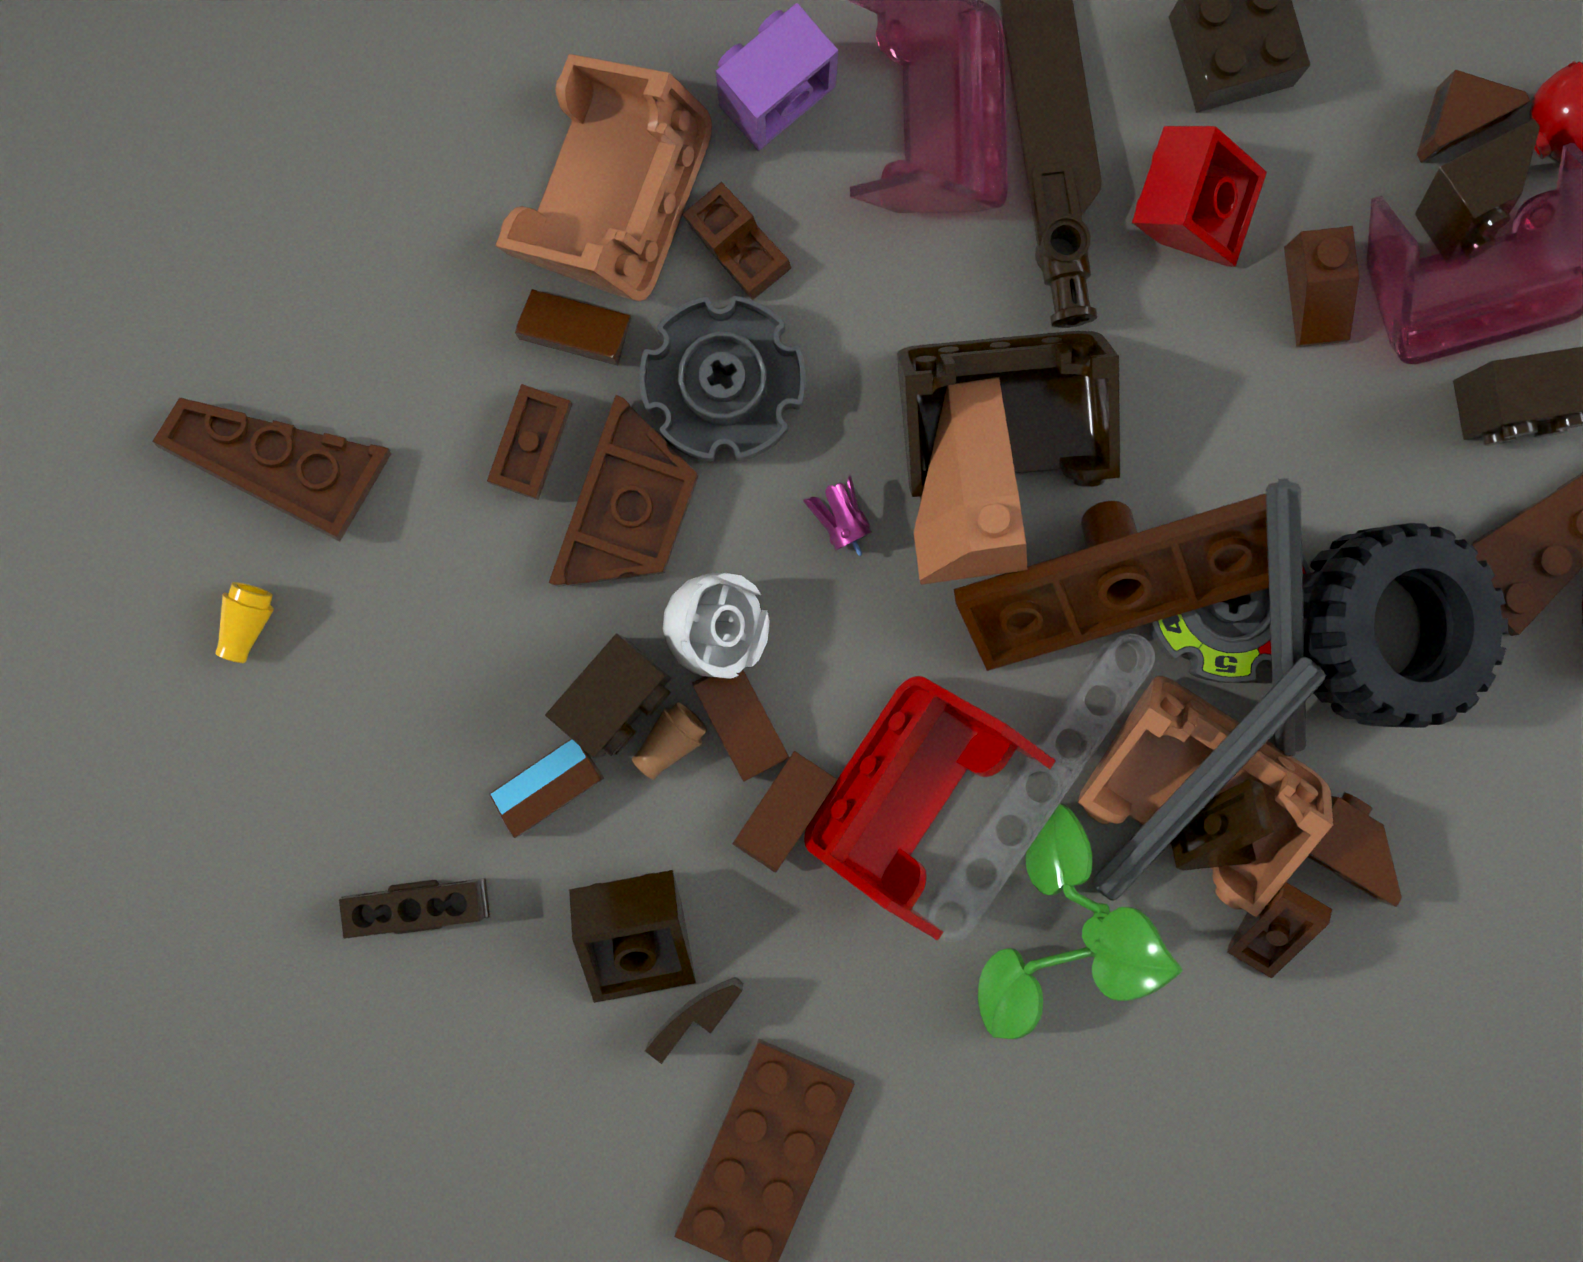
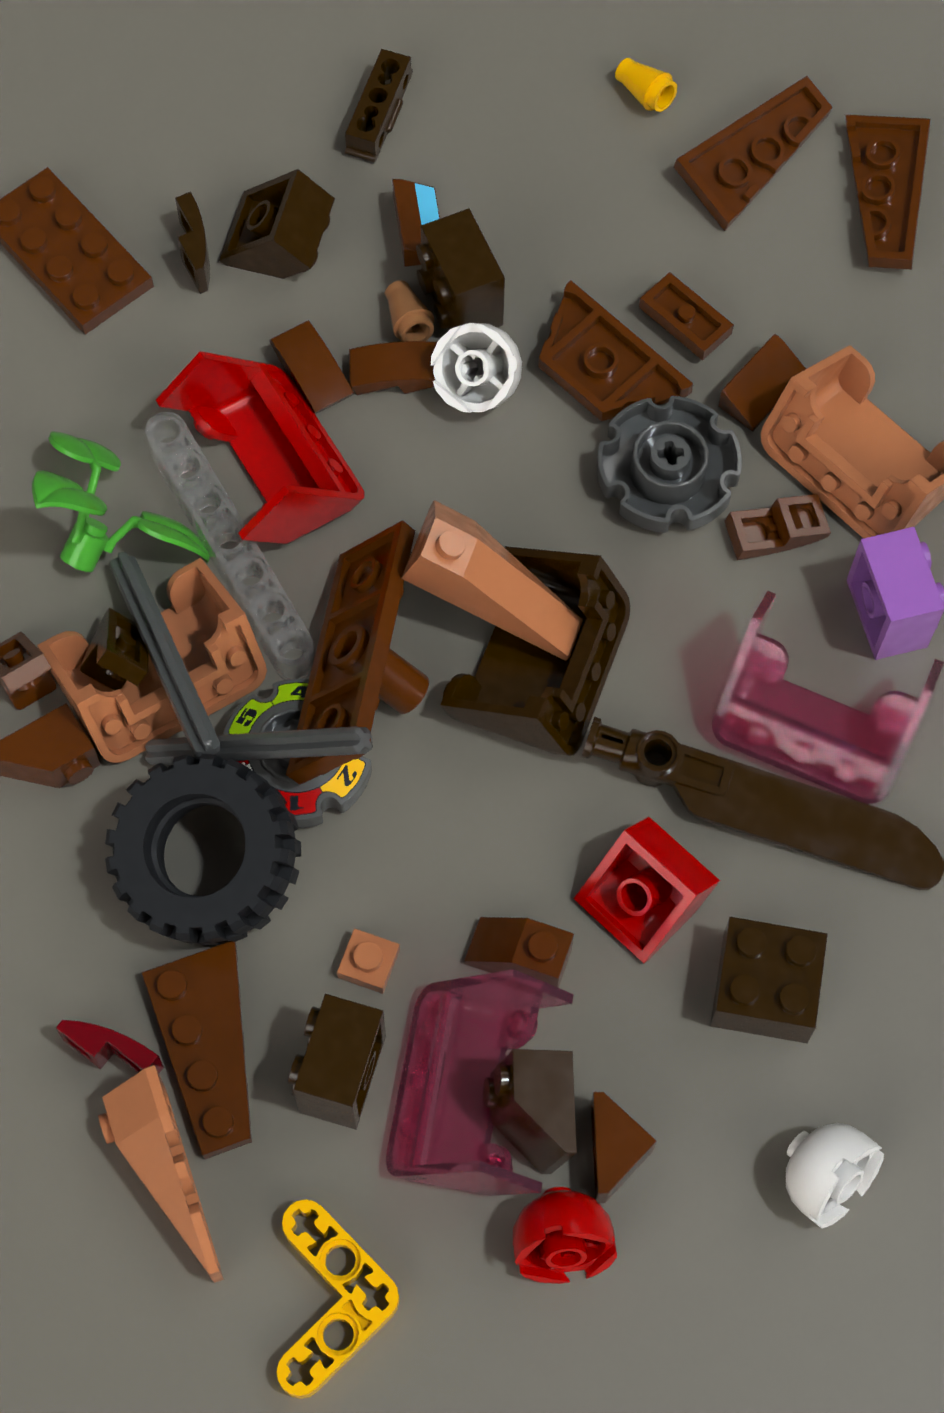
camera: 120 degrees right, 20 degrees down
(242, 299) = (888, 178): none -> reddish brown wing
(848, 521) = (507, 497): flat silver piece -> none
(1395, 429) = (368, 961): none -> nougat plate

